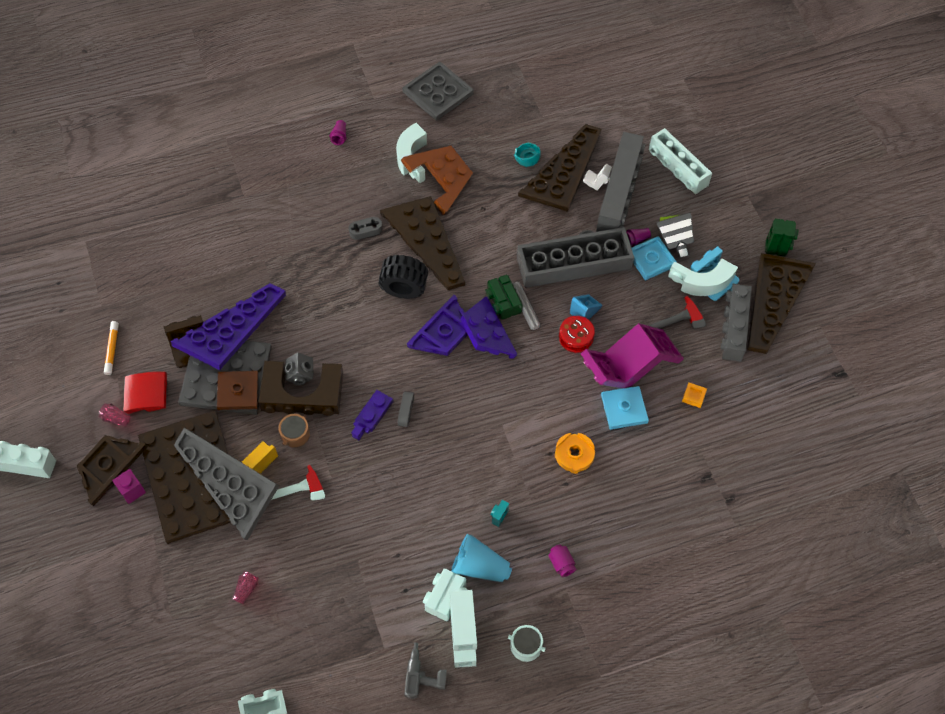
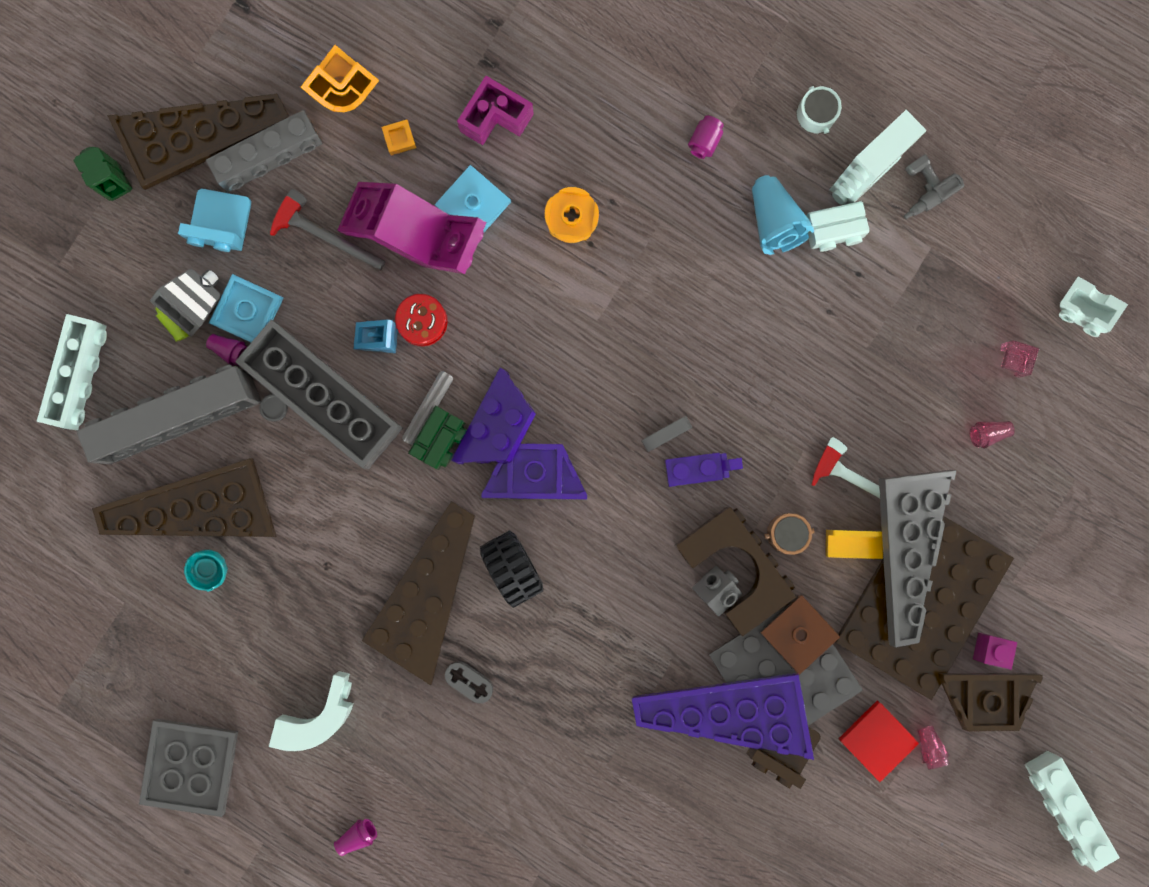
camera: 130 degrees left, 25 degrees up
(111, 348) = (858, 834): light orange bar -> none
(273, 635) = (1019, 358): none -> clear pink panel
(446, 168) = (309, 647): dark orange wing -> none
(499, 512) = (706, 239): teal plate -> none
(596, 181) = (177, 454): white bracket -> none
(673, 451) = (492, 106): none -> magenta brick
(703, 283) = (220, 207): light aqua arch -> none
(749, 382) = (339, 82): none -> light orange brick

